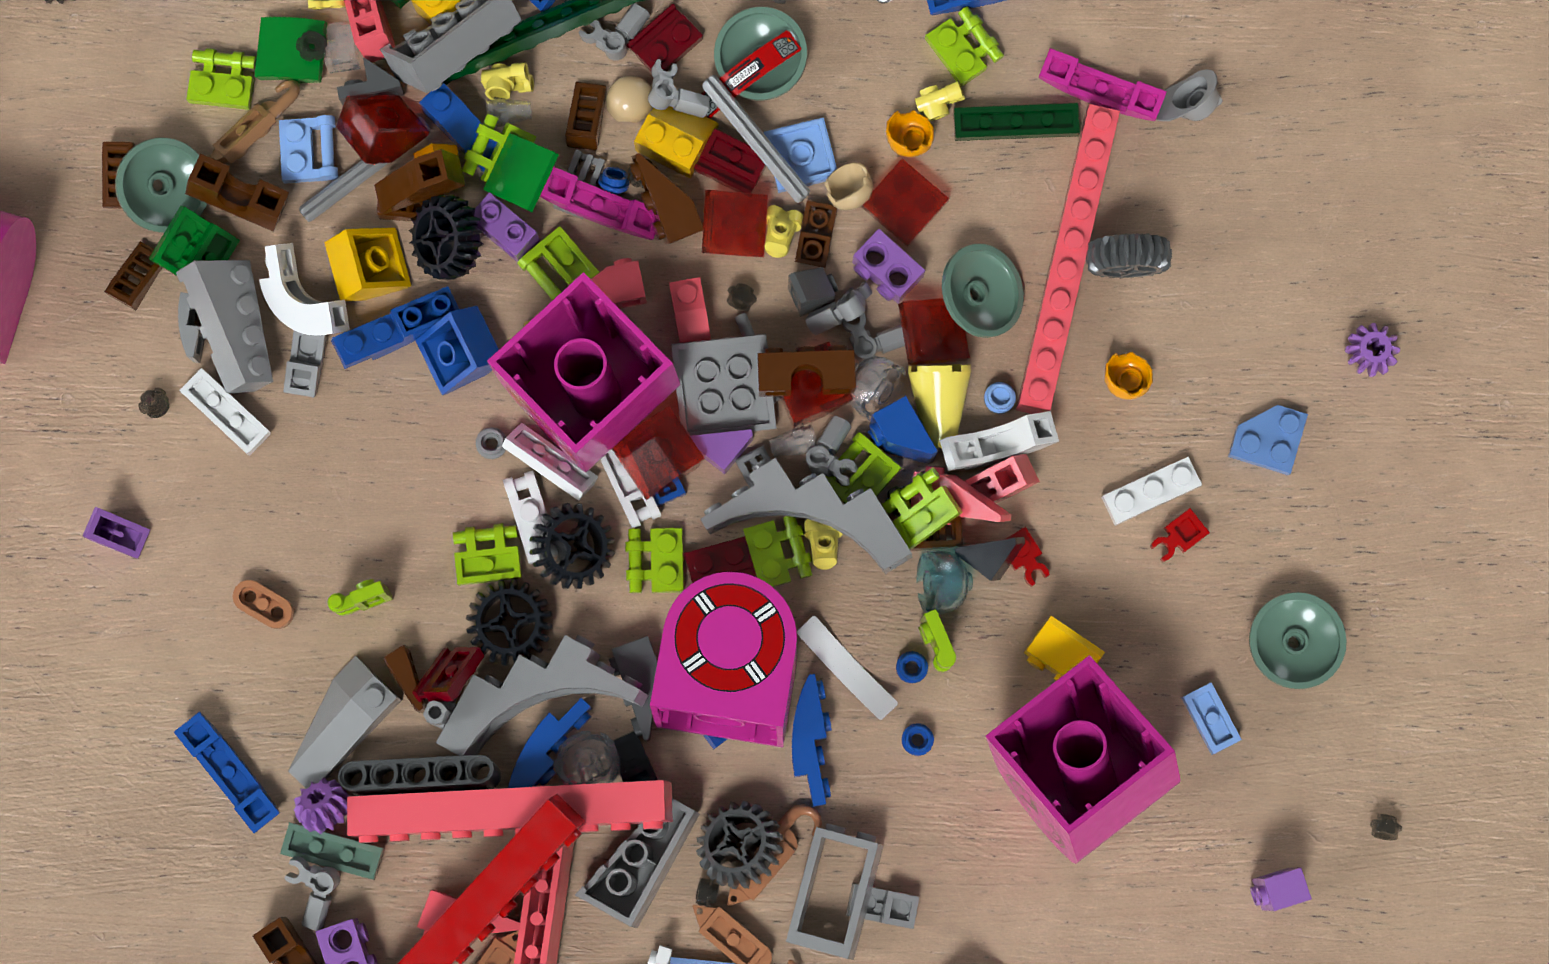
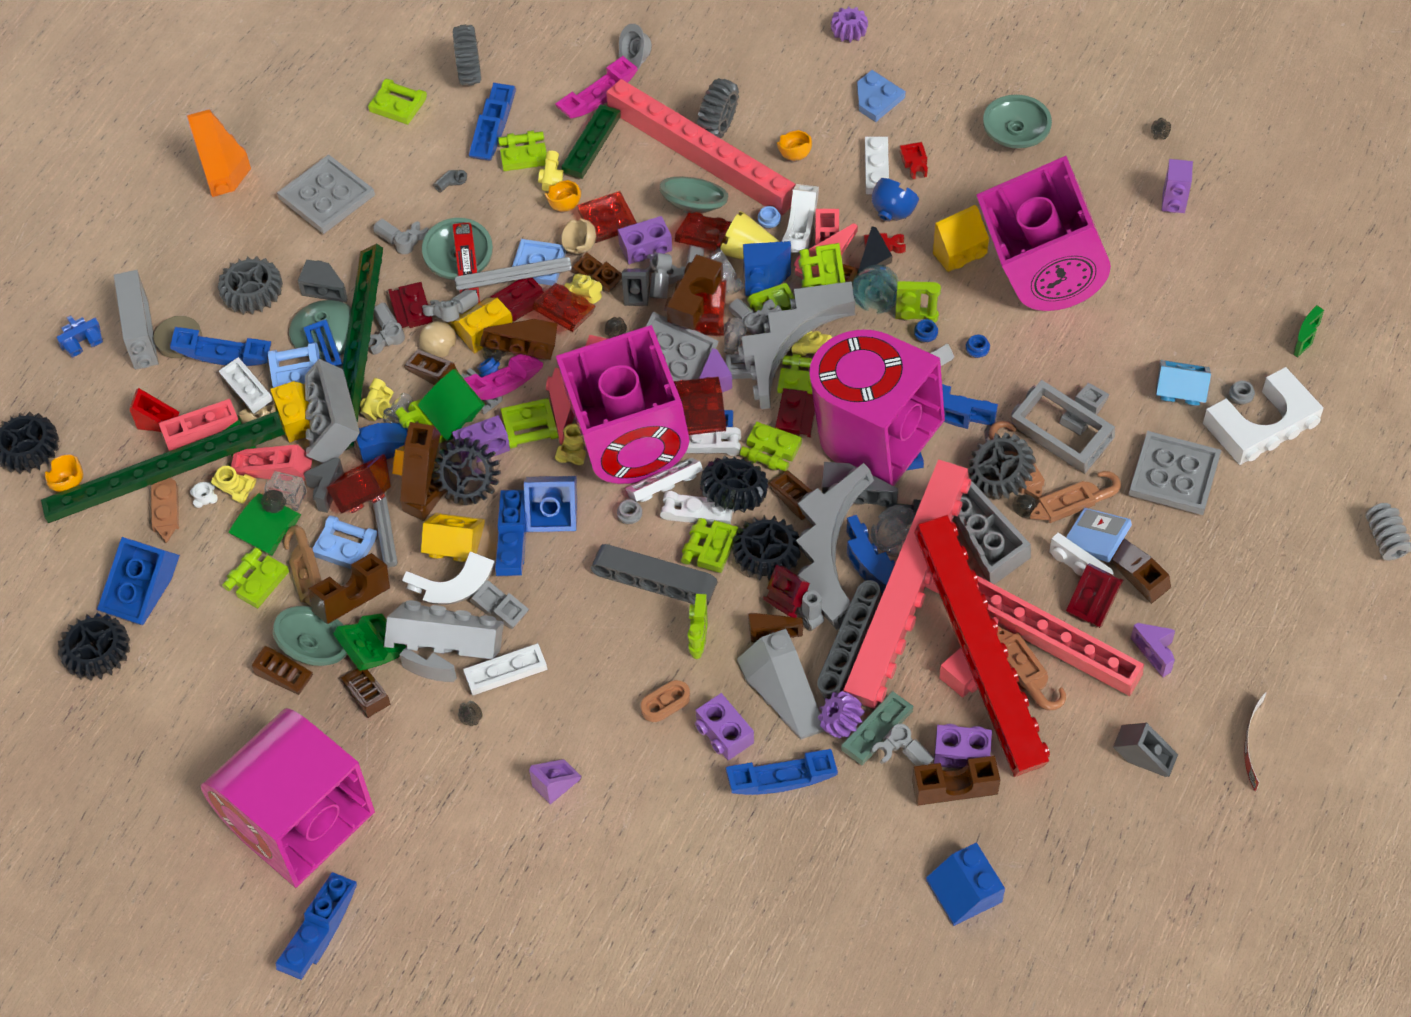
camera: 60 degrees left, 25 degrees down
(264, 688) = (729, 724): none -> medium lavender brick
(416, 513) = (652, 574): none -> dark grey beam
(612, 622) = (790, 499): none -> reddish brown slope
(1089, 540) = (893, 201): none -> blue cylinder

